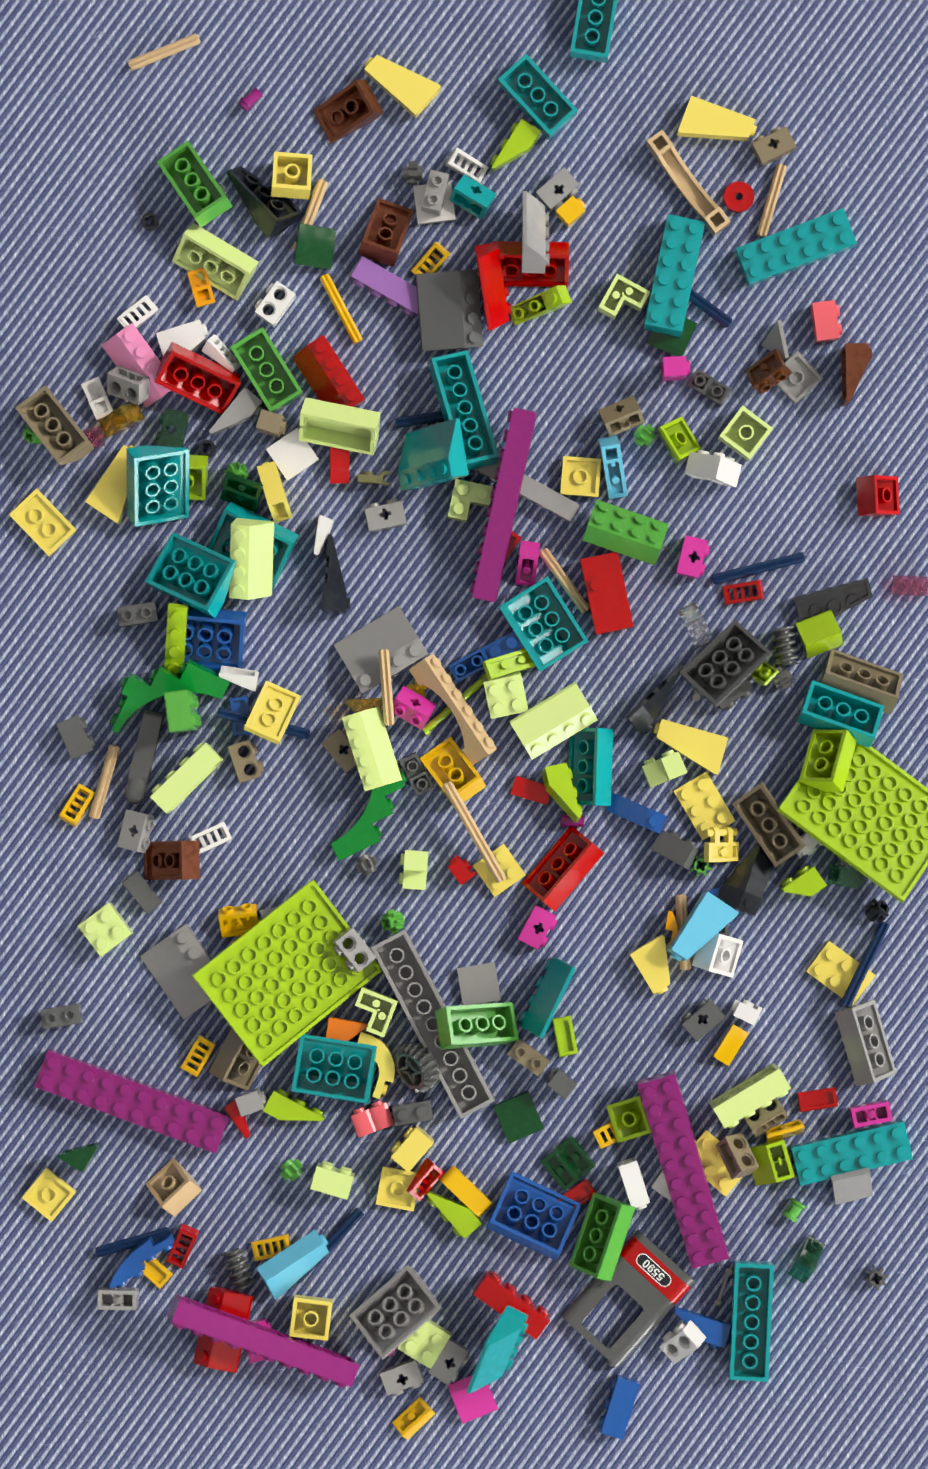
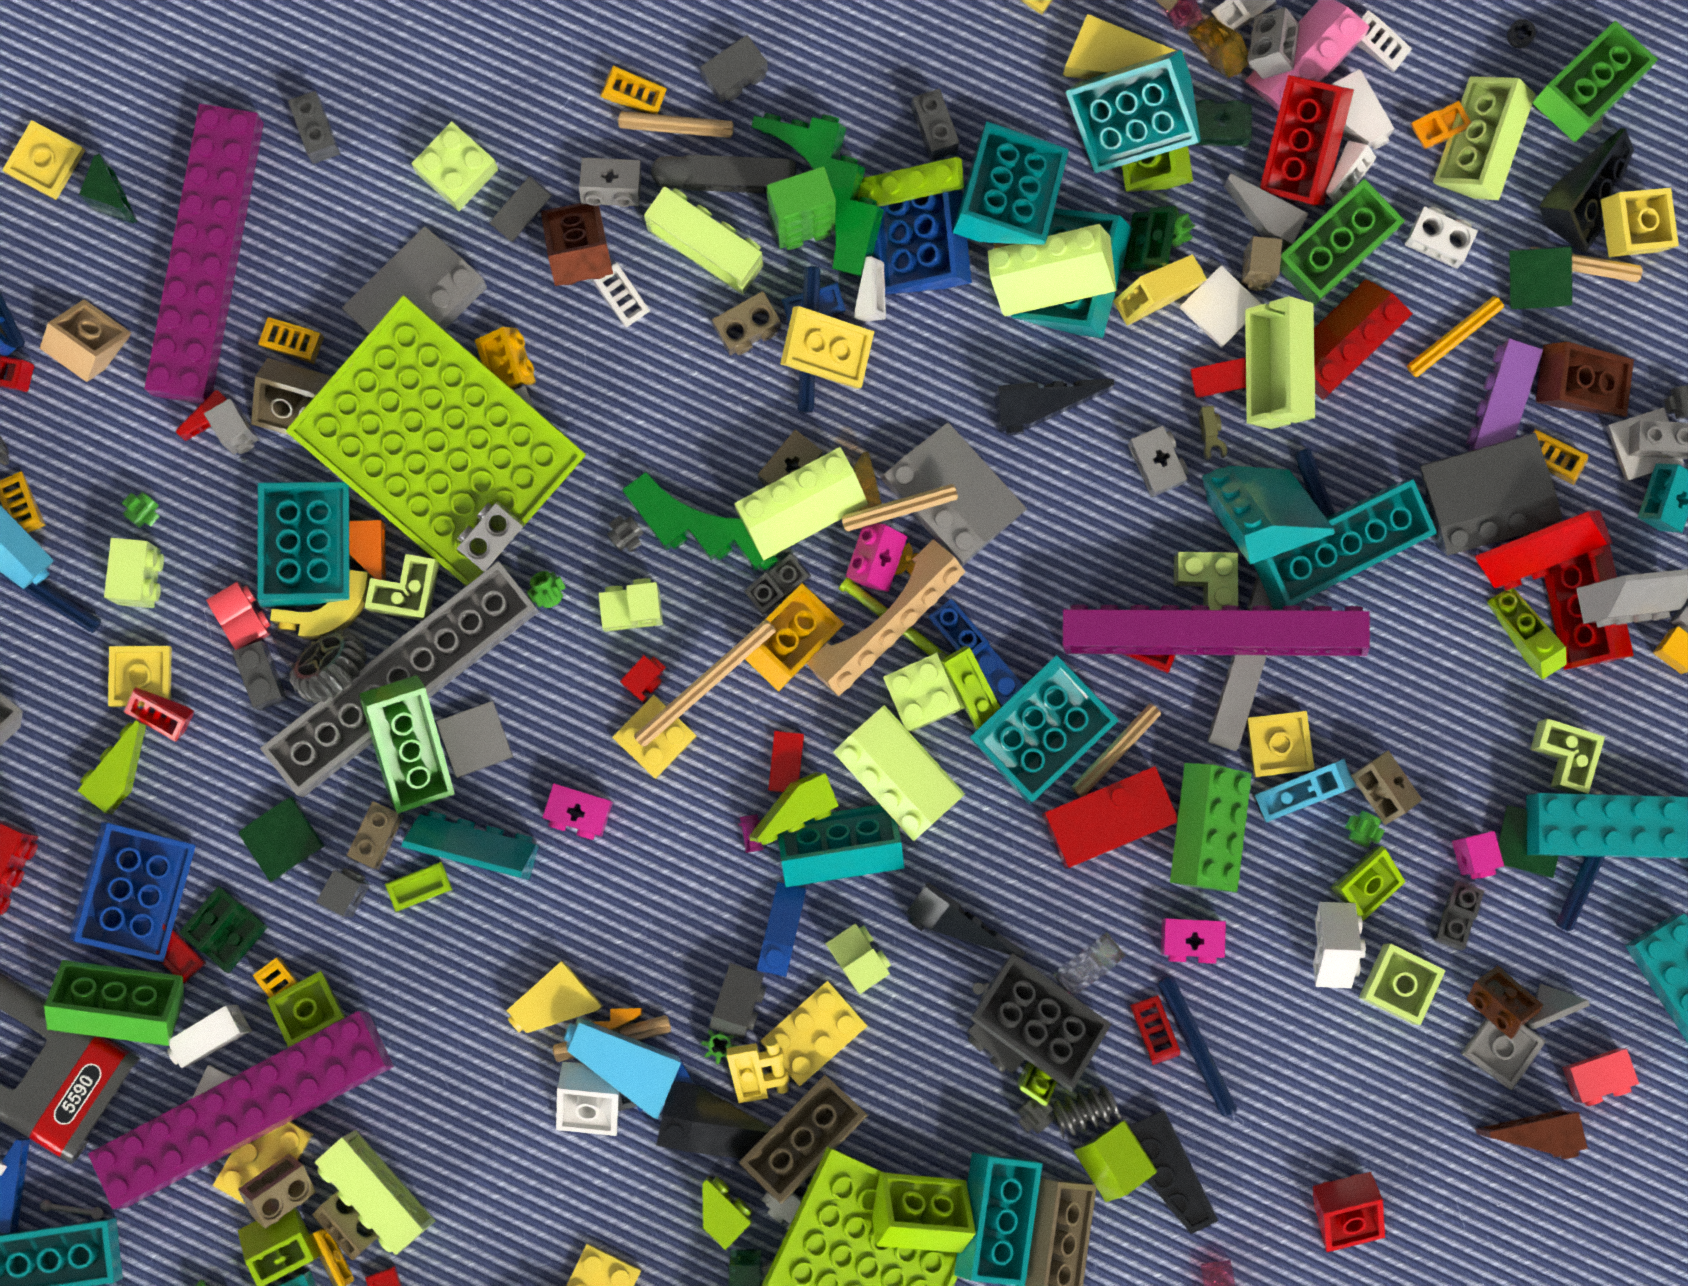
camera: 75 degrees right, 5 degrees down
(201, 449) = (1206, 188): black bush -> none
(286, 1108) = (233, 484): lime slope -> none
(323, 529) = (1122, 372): white slope -> none
(411, 1148) = (208, 687): light yellow brick -> none
(466, 1191) = (152, 781): yellow beam -> none
(527, 563) = (1132, 688): dark pink slope -> none
(562, 868) = (675, 833): red slope -> none
(695, 744) = (905, 1002): light yellow slope -> none
(700, 1029) = (487, 1111): dark grey brick -> none
(730, 1044) = (450, 1146): yellow slope -> none
(746, 1011) = (506, 1161): white brick -> none

